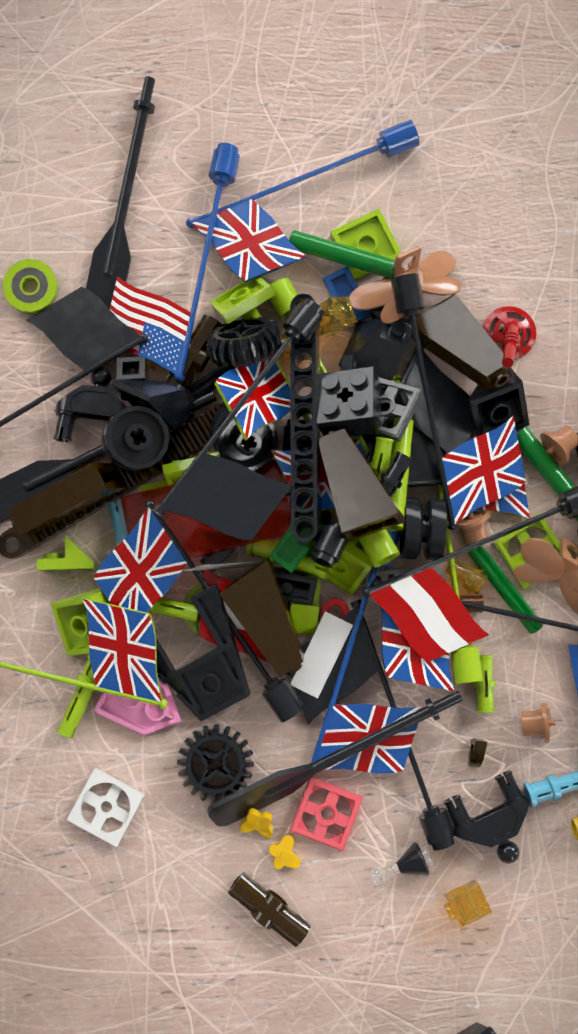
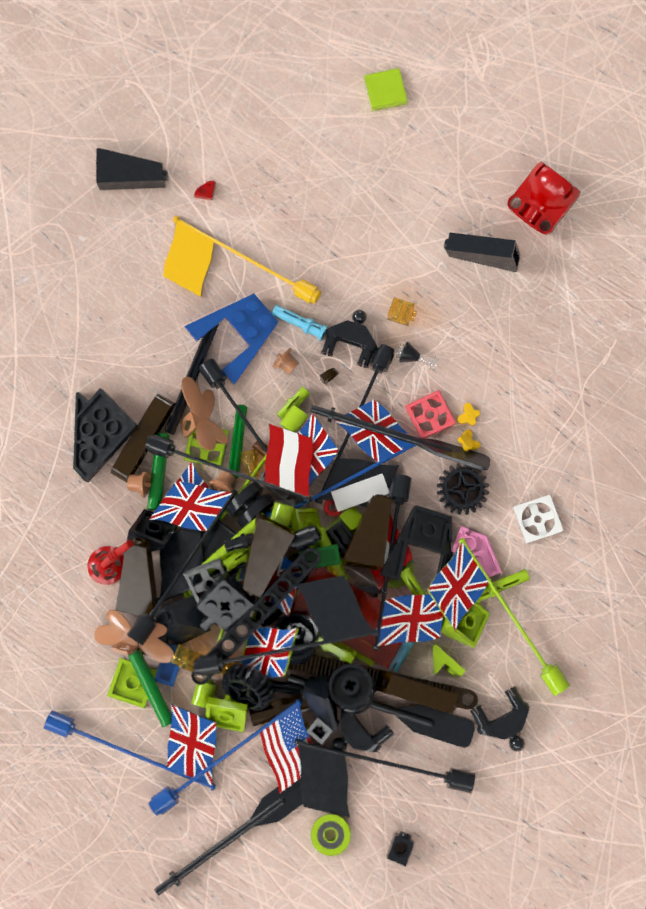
camera: 130 degrees left, 5 degrees down
(269, 909) = (500, 396): dark brown piece -> none

